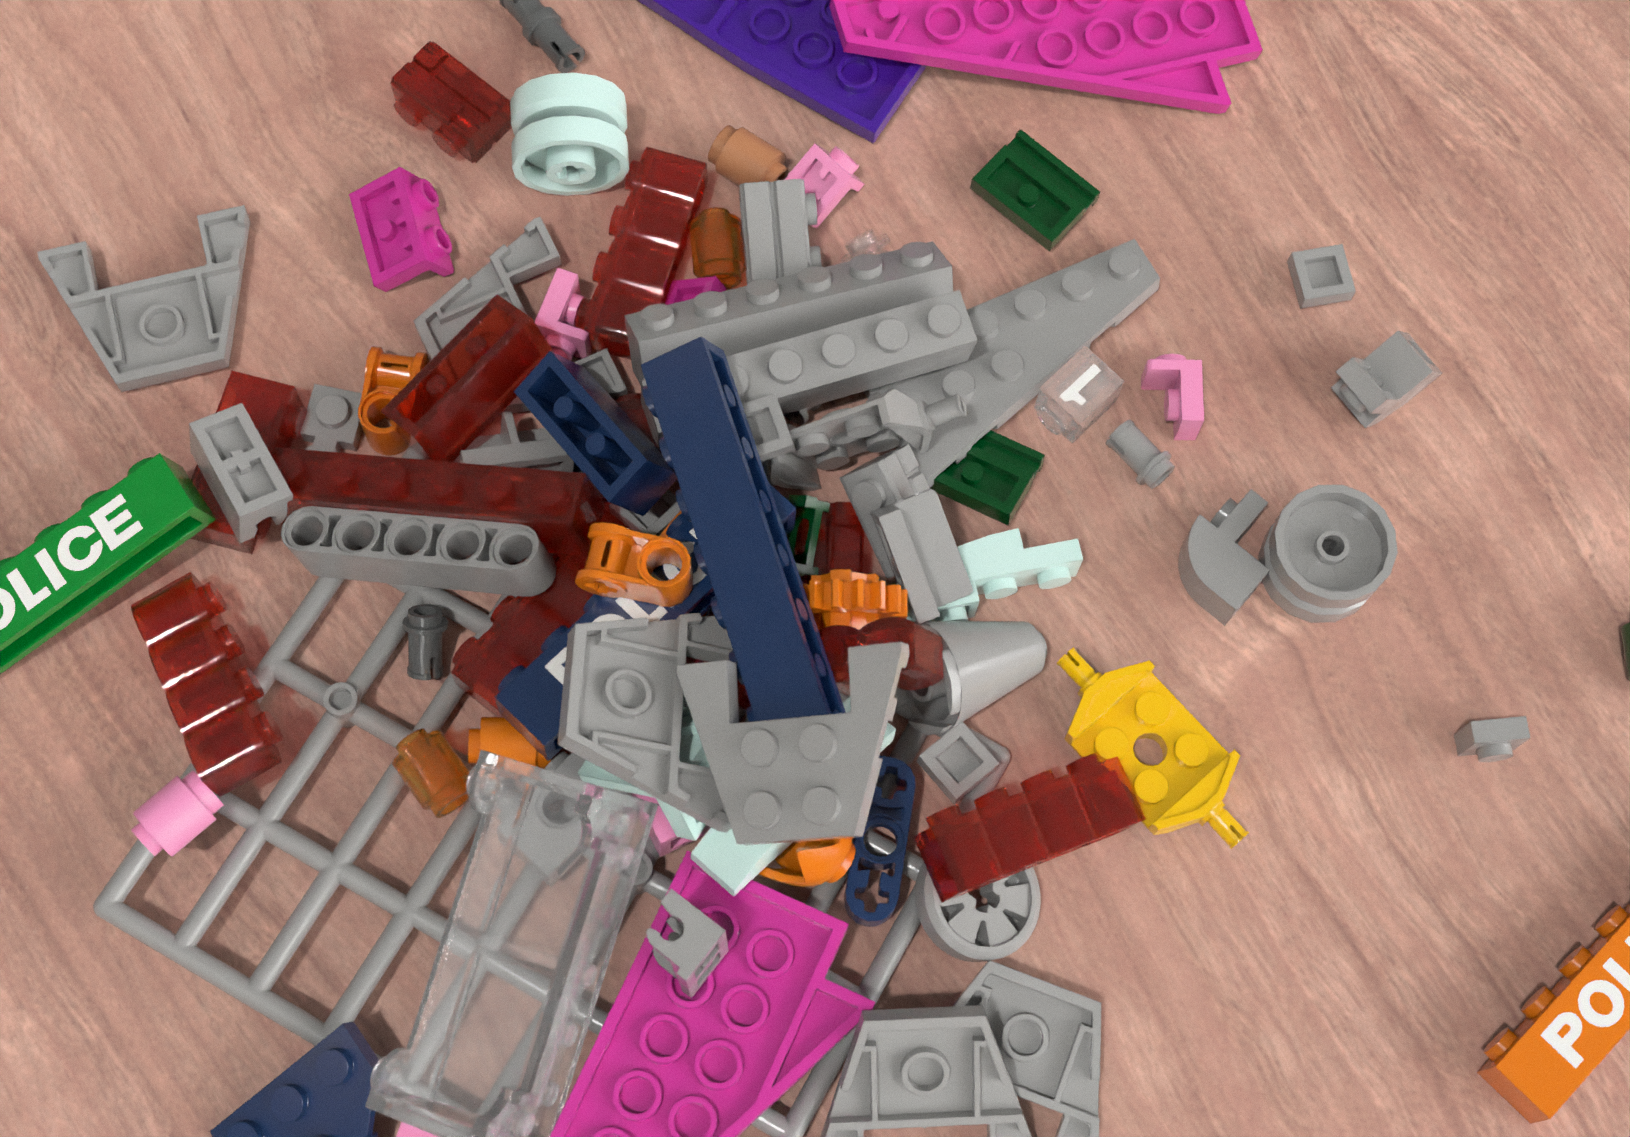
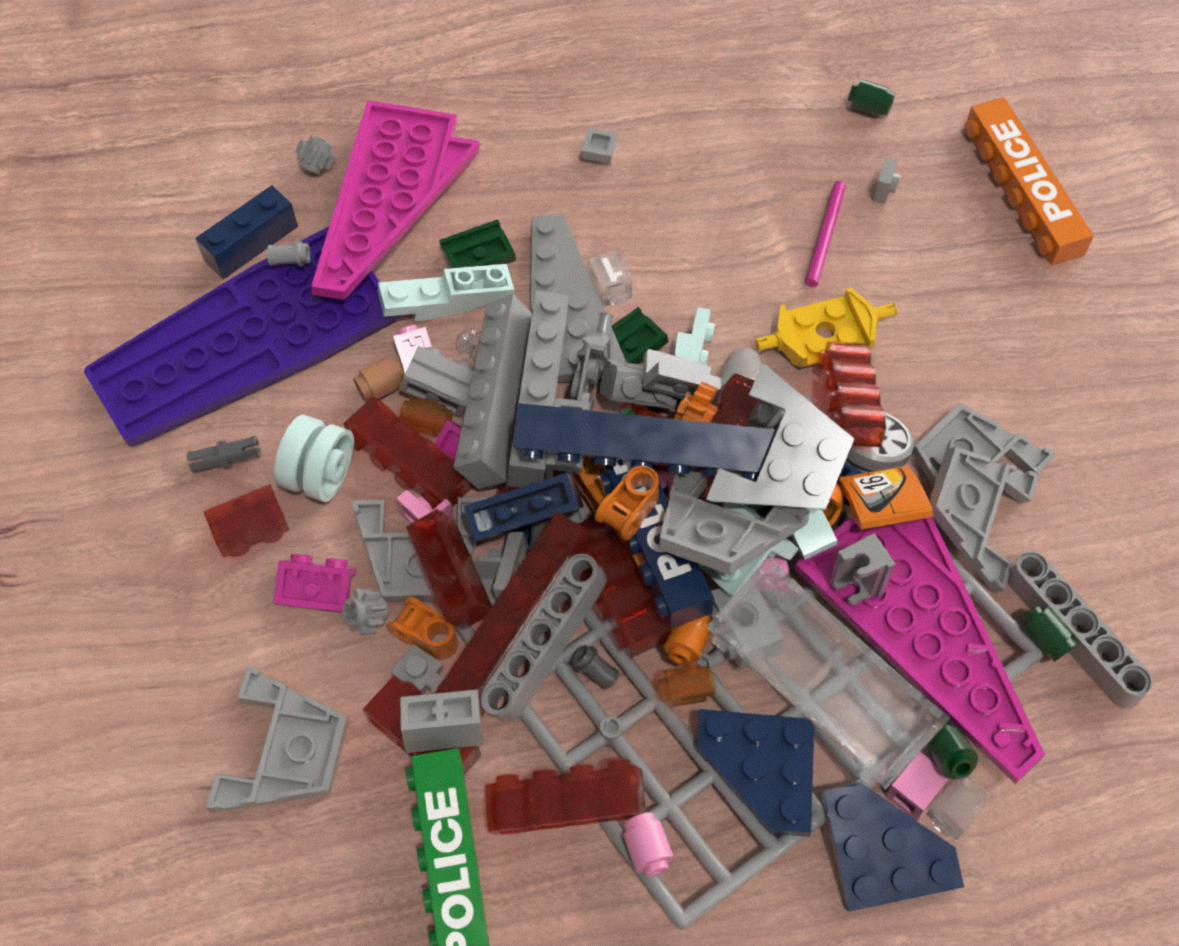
camera: 60 degrees left, 10 degrees down
(362, 929) = (764, 764): none -> dark blue plate
(382, 310) = (365, 611): none -> light grey gear
(849, 939) = (885, 497): none -> orange slope
(933, 182) = (448, 295): none -> light aqua slope
(1140, 454) = (658, 266): light grey pin -> none
(1183, 392) = (635, 230): bright pink bracket -> none
(1214, 566) = (739, 257): light grey brick -> none
(1327, 553) = (758, 204): light grey wheel -> none
(1342, 683) = (825, 234): none -> dark pink bar
(1385, 378) = (673, 141): light grey brick -> none

